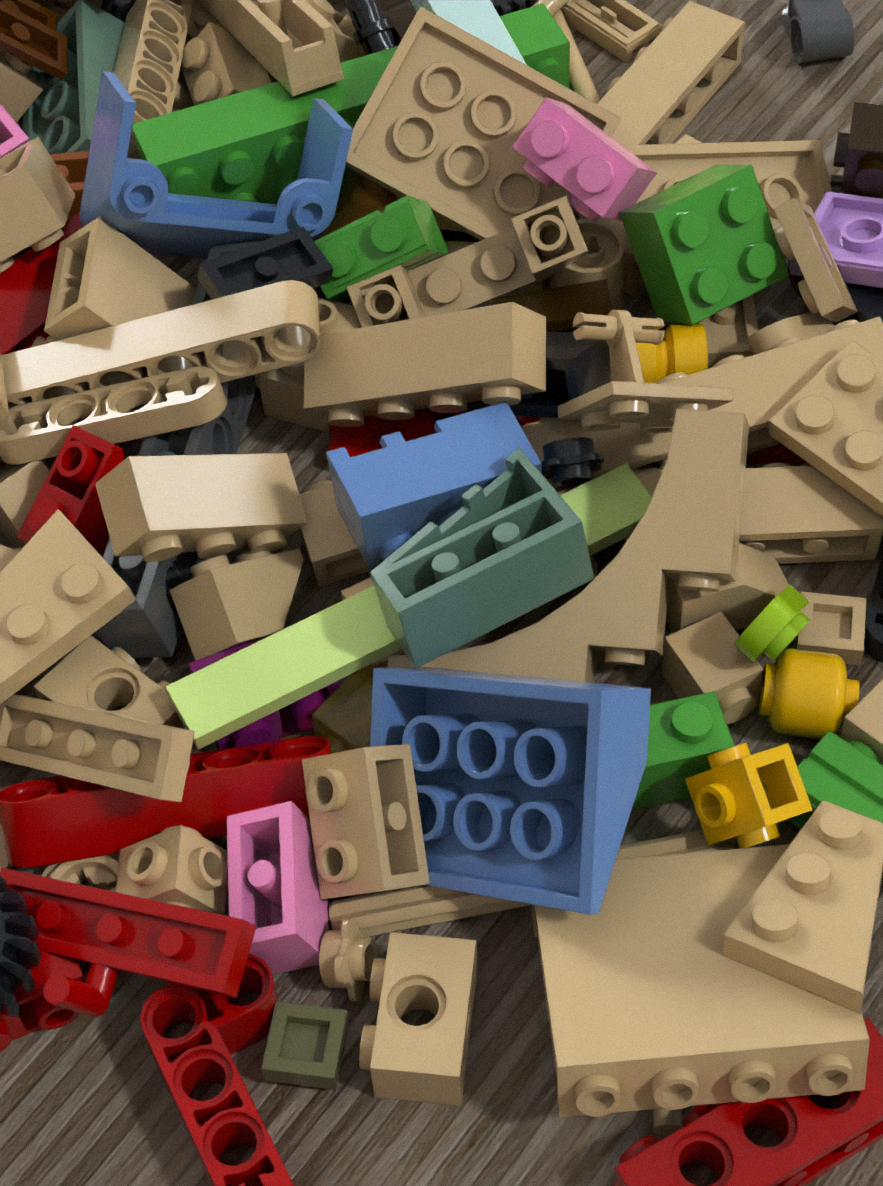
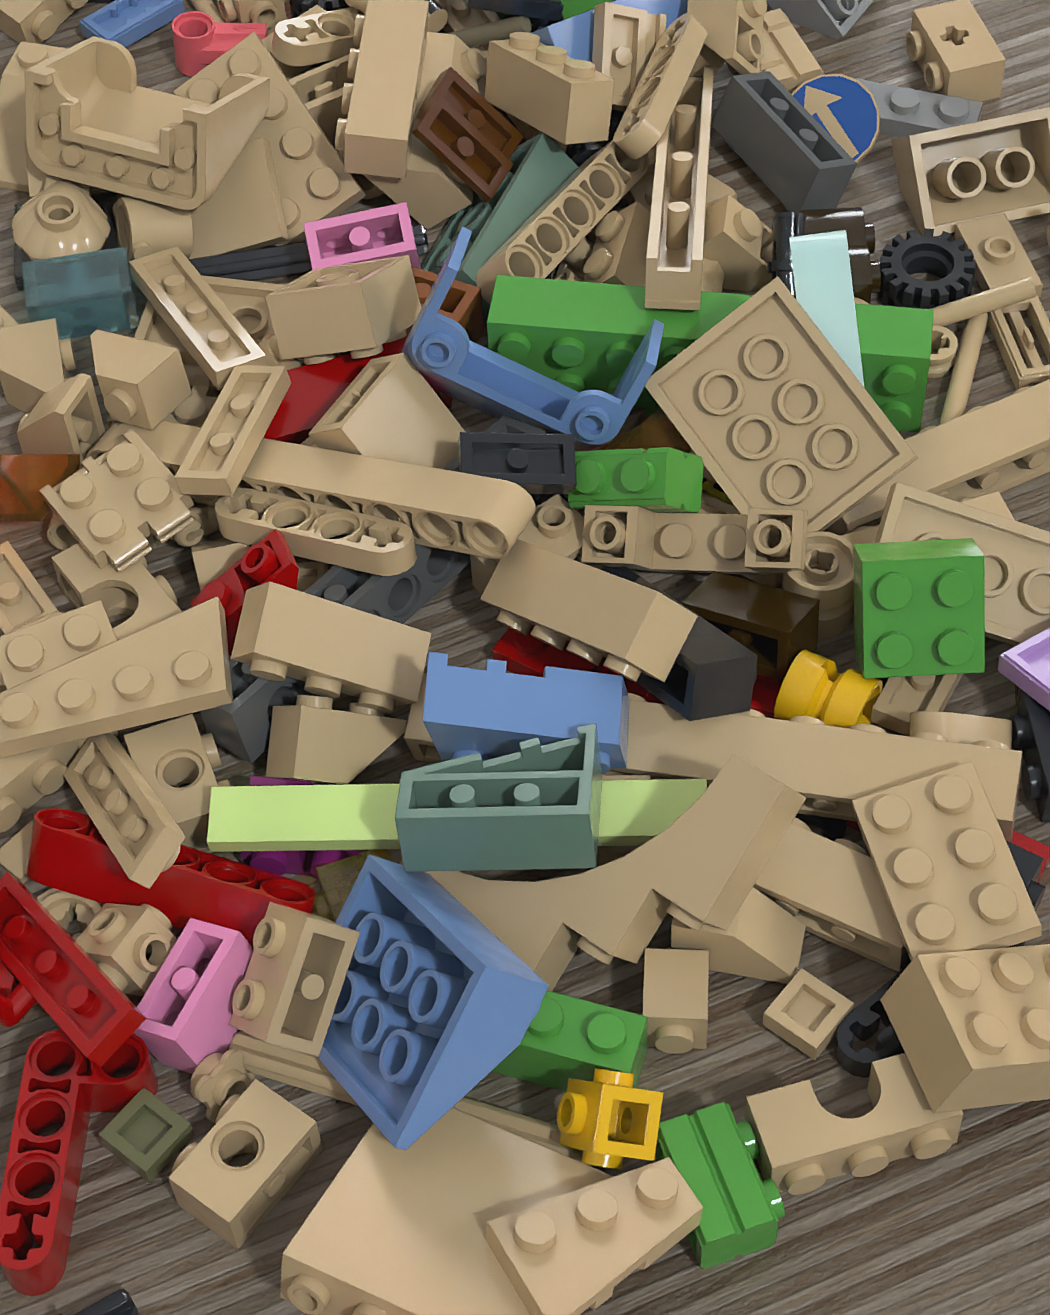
camera: 30 degrees right, 0 degrees up
(570, 461) = (655, 754): black plate -> none
(583, 160) = (844, 482): bright pink brick -> none
(627, 395) = (709, 730): tan plate -> none
(775, 626) = (737, 984): lime plate -> none
(804, 241) = (1008, 670): tan plate -> none
(807, 693) = (738, 1058): yellow head -> none

